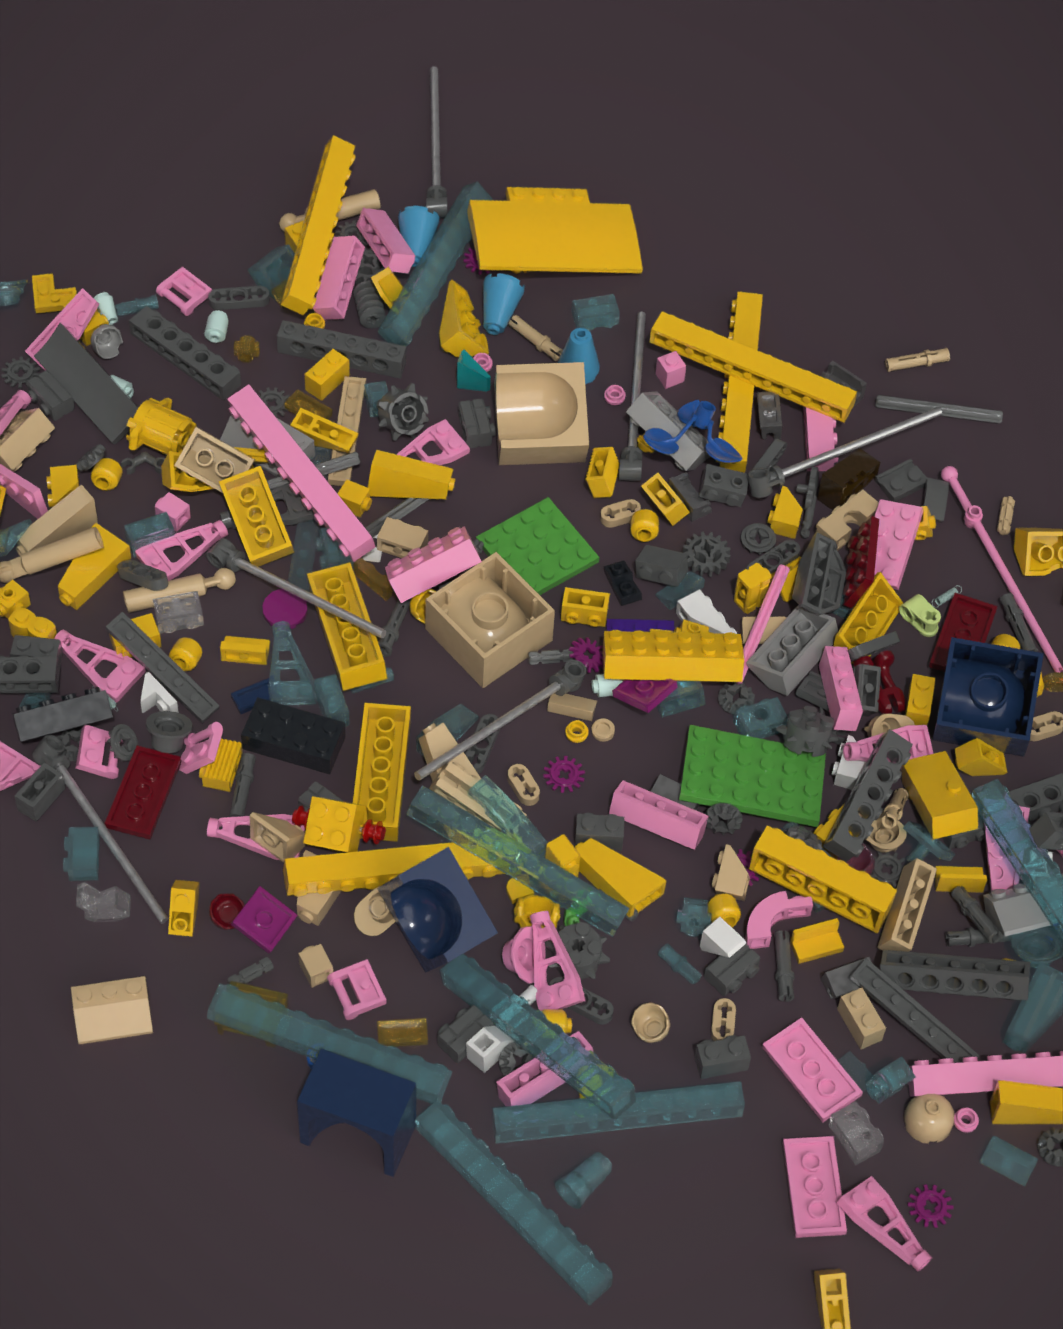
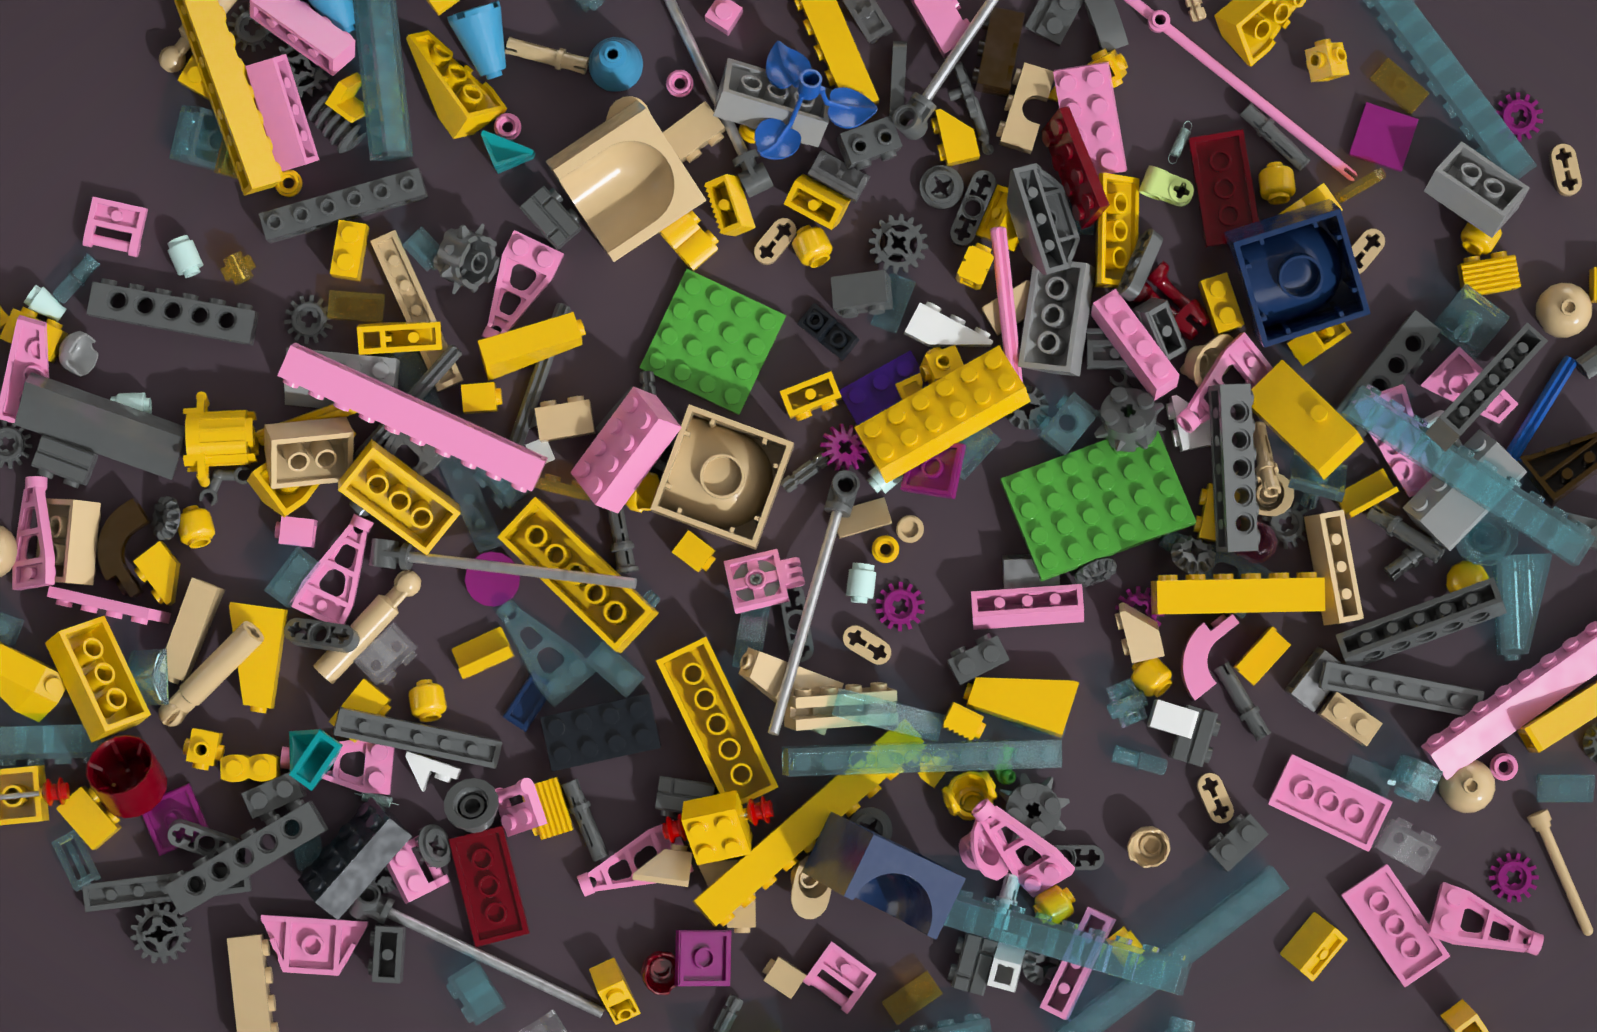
camera: 25 degrees left, 30 degrees up
(49, 453) = (113, 541): none -> dark brown arch
(82, 639) = (311, 755): none -> teal slope
(224, 304) = (193, 179): dark grey beam -> none
(438, 661) = (694, 552): none -> yellow brick
(474, 700) = (762, 580): none -> bright pink piece
(545, 741) = (861, 582): none -> light aqua brick
(561, 480) = (690, 240): none -> yellow brick
(608, 423) = (695, 132): none -> tan brick
(740, 1168) = (1313, 946): none -> yellow panel
(975, 1174) = (1541, 822): none -> tan piece

